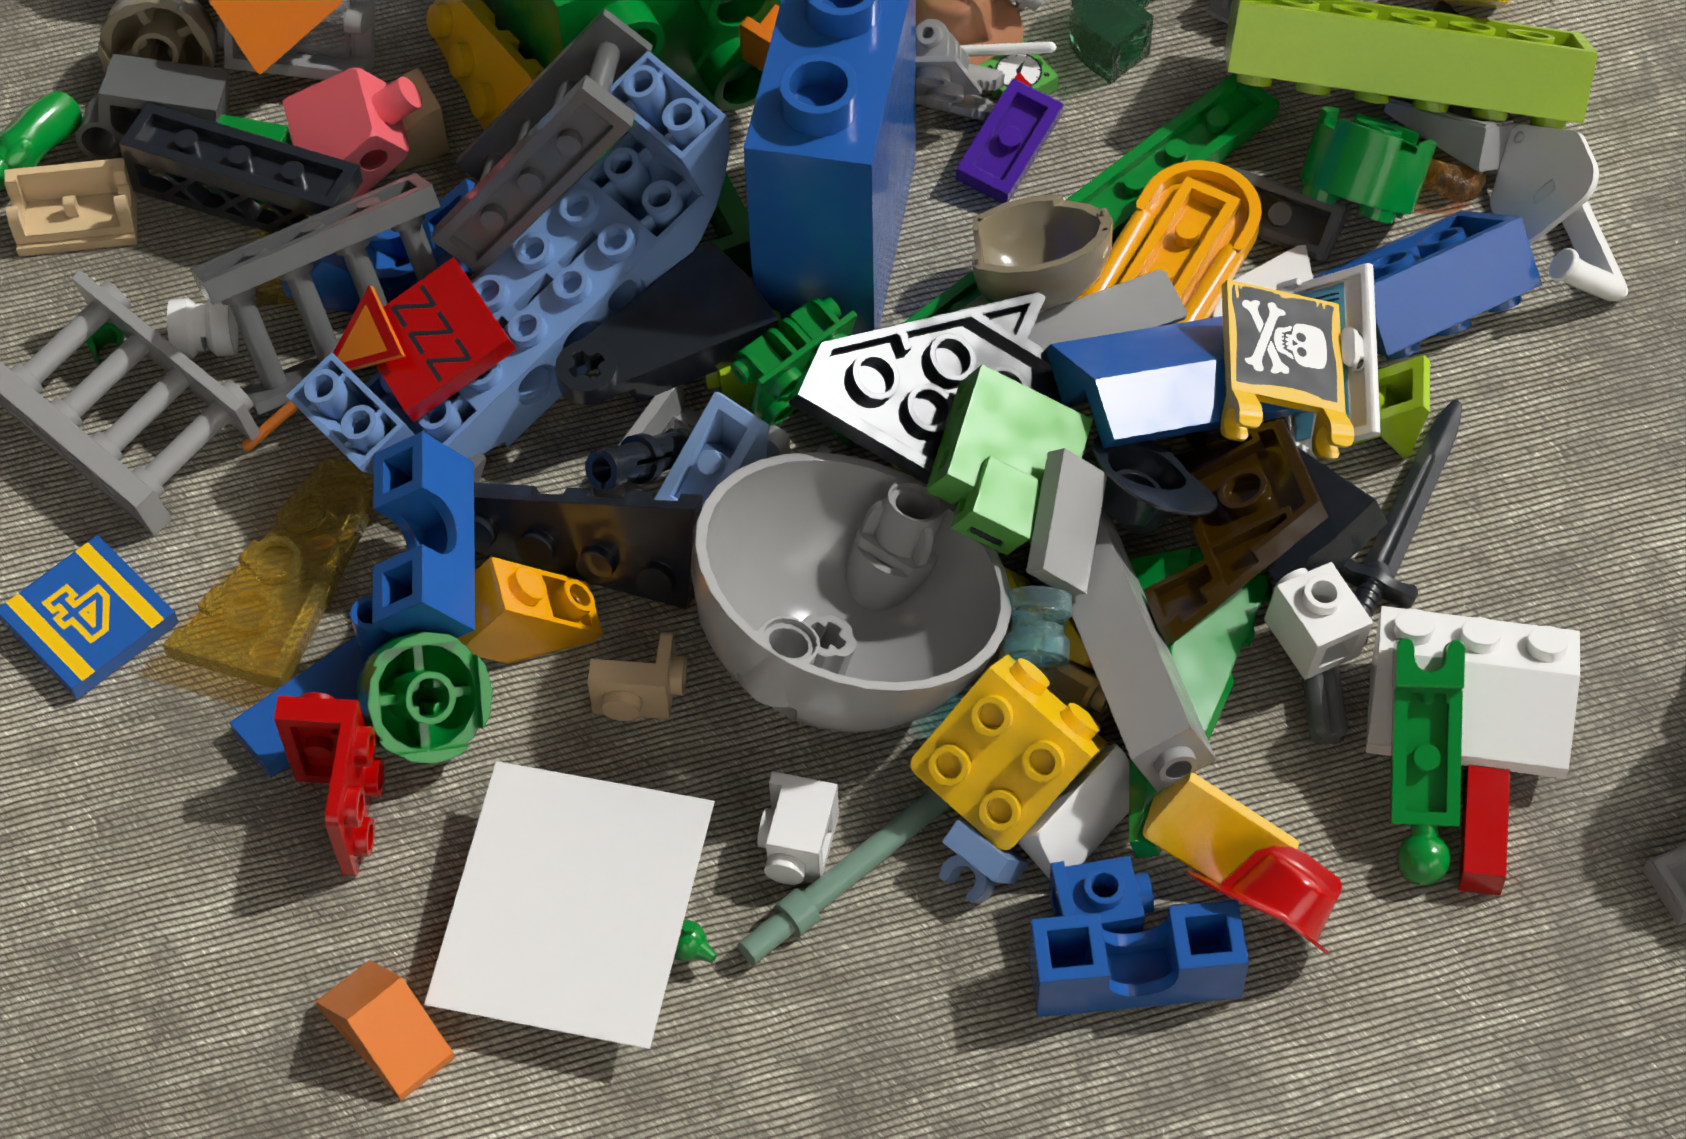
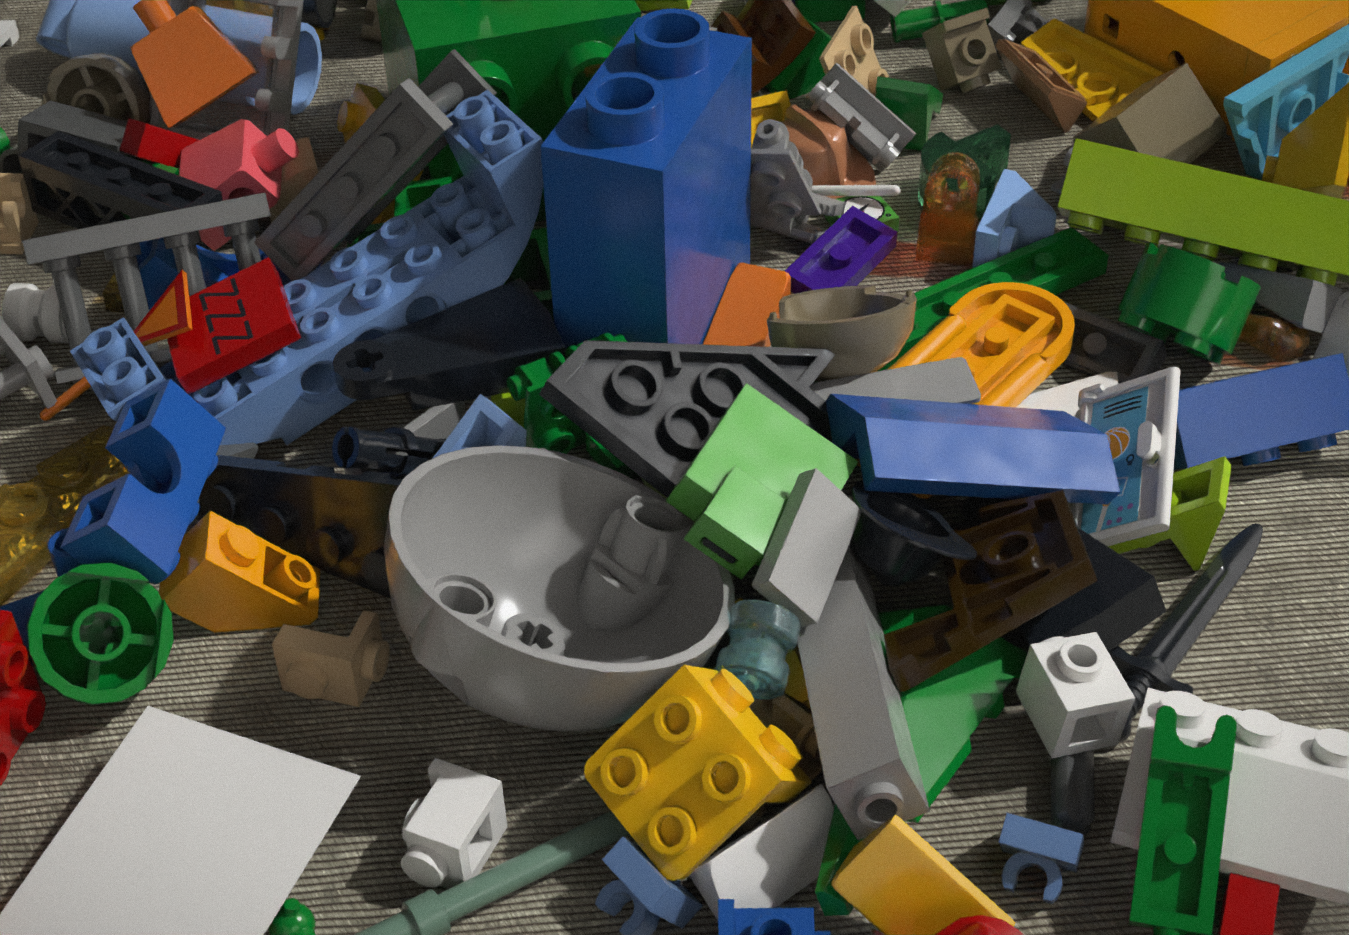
camera: 10 degrees right, 15 degrees down
(259, 96) = (154, 143): none -> red piece
(929, 230) = (746, 306): none -> orange slope
(1113, 72) = (948, 217): none -> clear orange piece
(1178, 69) = (1012, 219): none -> light blue slope
(1285, 355) = (1076, 437): flag -> none
(1307, 766) = (1040, 847): none -> medium blue tile

